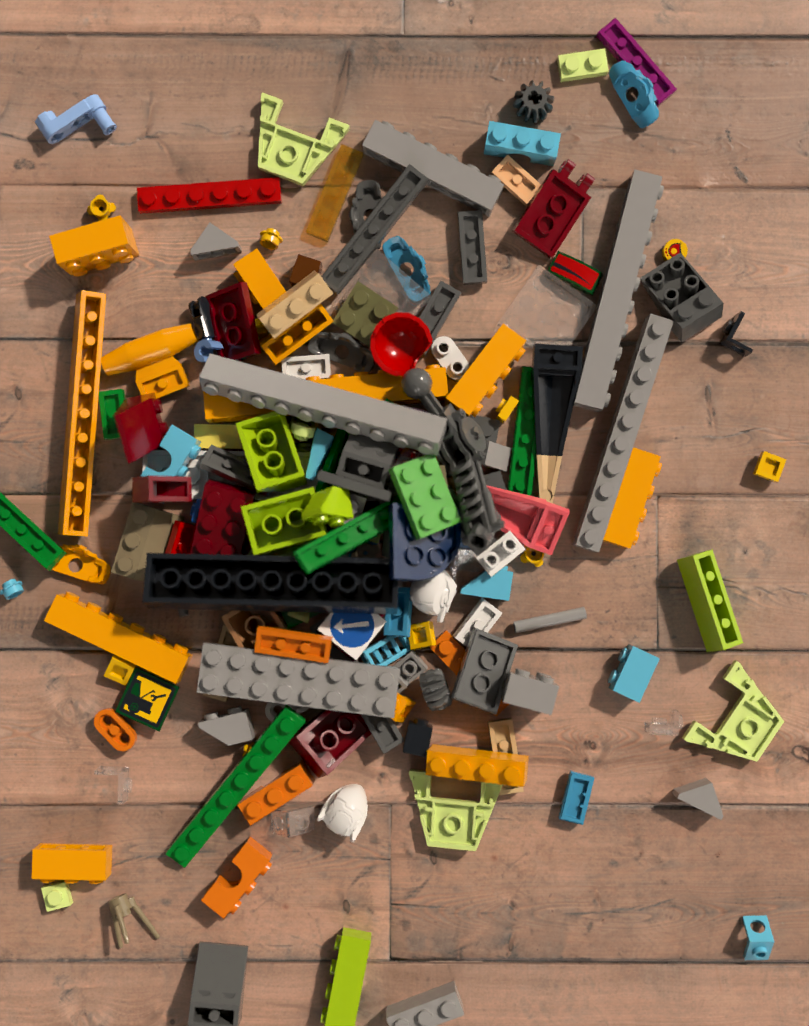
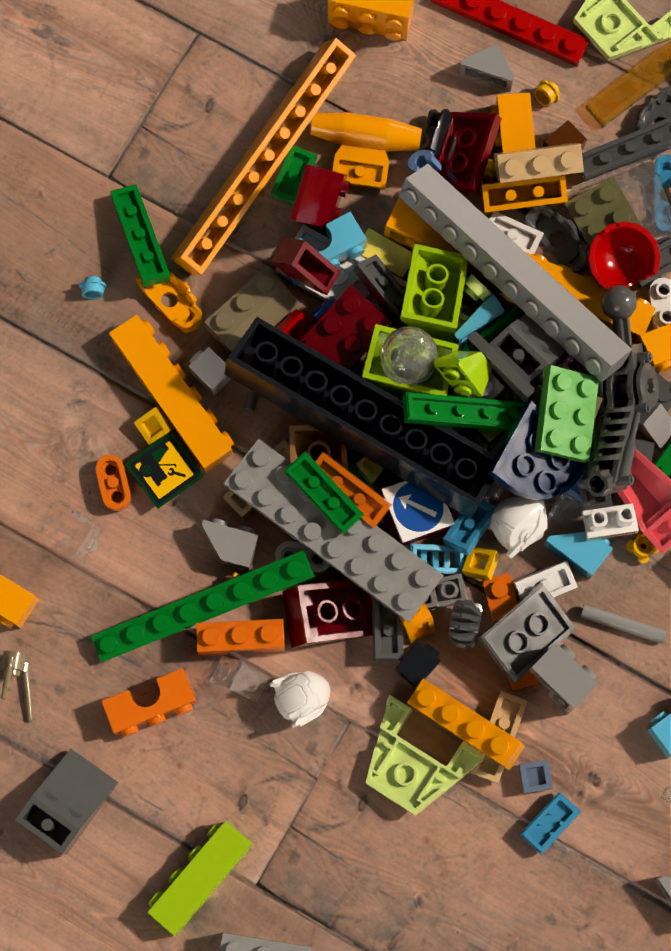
camera: 30 degrees right, 10 degrees down
(132, 604) = (209, 370): none -> white brick
(276, 659) = (324, 493): none -> green tile
(280, 519) = (408, 355): none -> clear cylinder
(547, 770) = (535, 776): none -> sand blue plate

